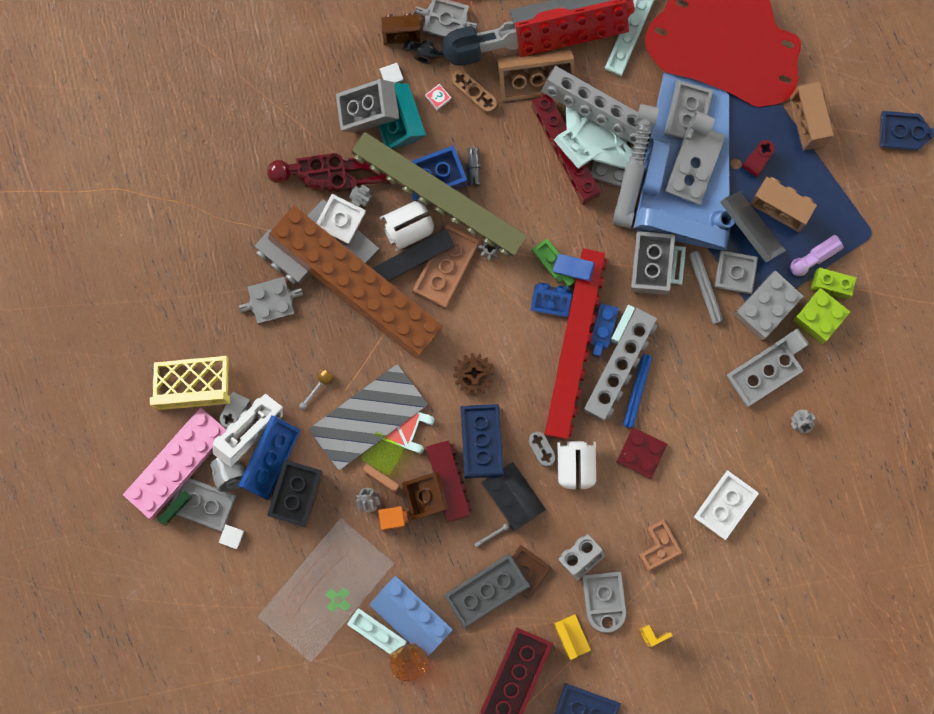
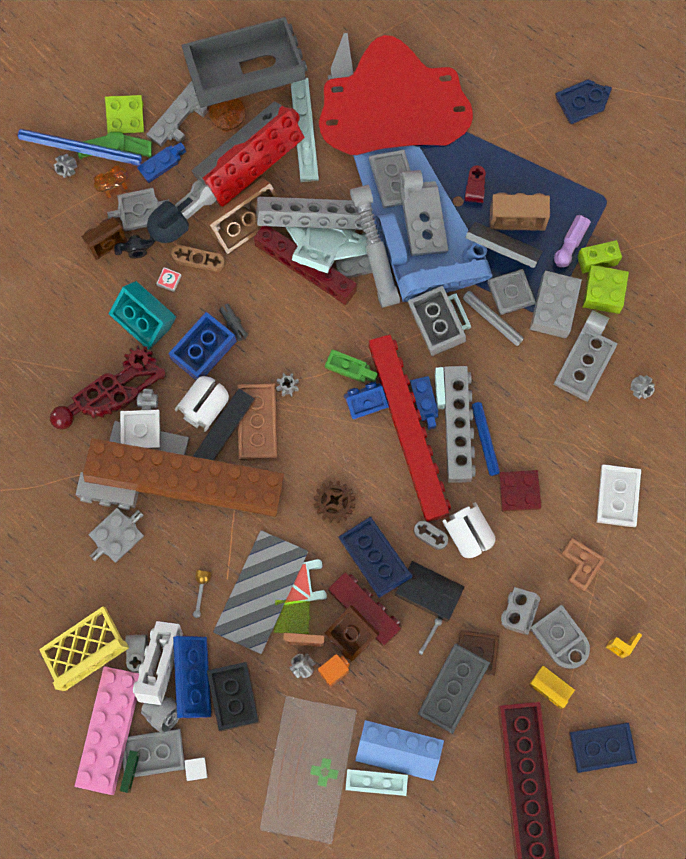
camera: 25 degrees left, 5 degrees down
(367, 106) = (110, 318): light grey brick -> none
(392, 73) = (116, 281): white tile -> none
(400, 667) = (415, 801): clear orange plate -> none
(438, 194) = (217, 360): olive brick -> none
(574, 267) = (370, 361): tile -> none
(812, 116) = (500, 126): medium nougat brick -> none

